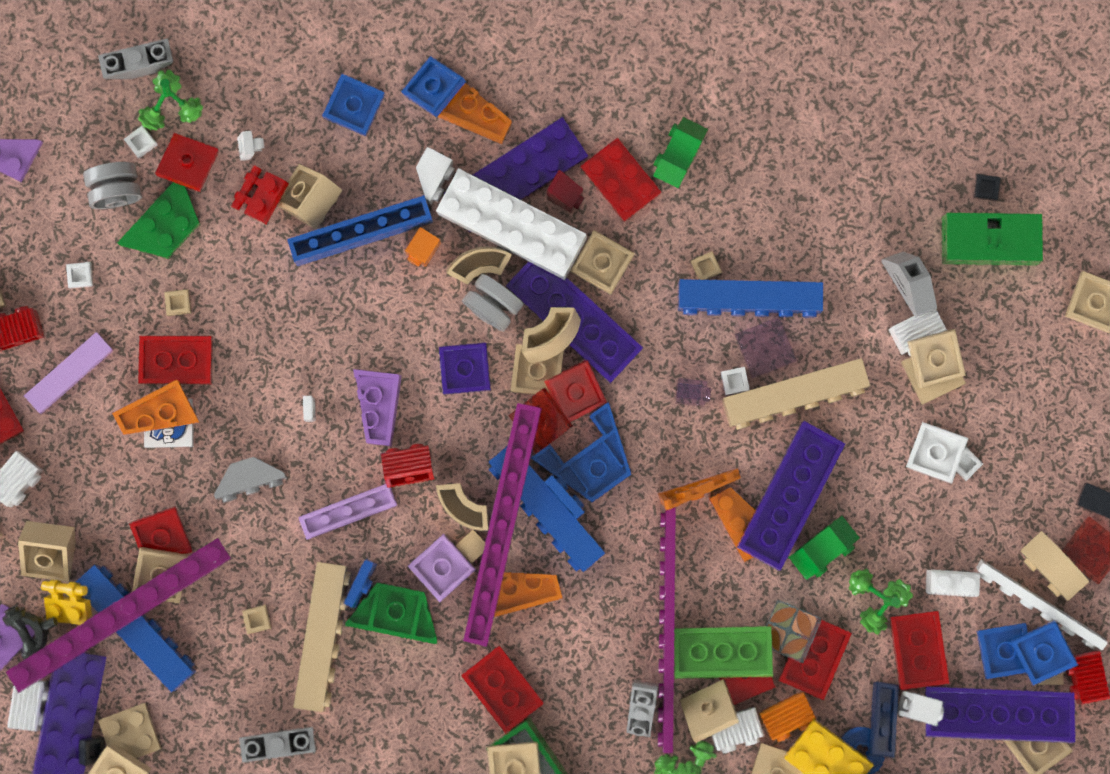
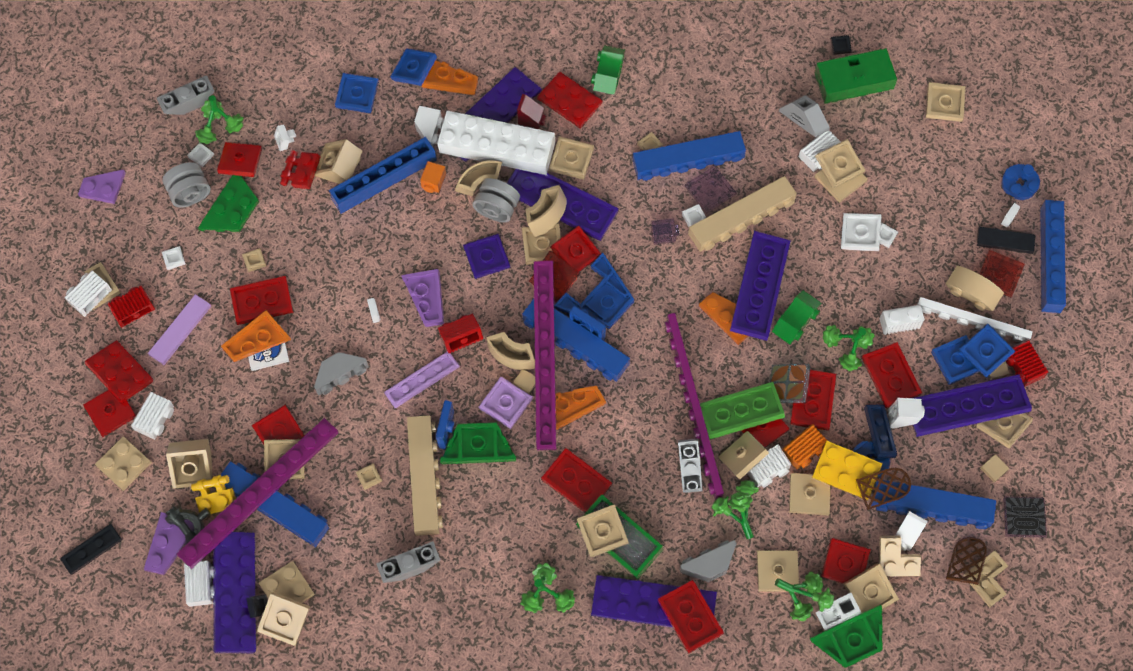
camera: 10 degrees left, 15 degrees down
(697, 489) = (687, 299): orange wing -> none

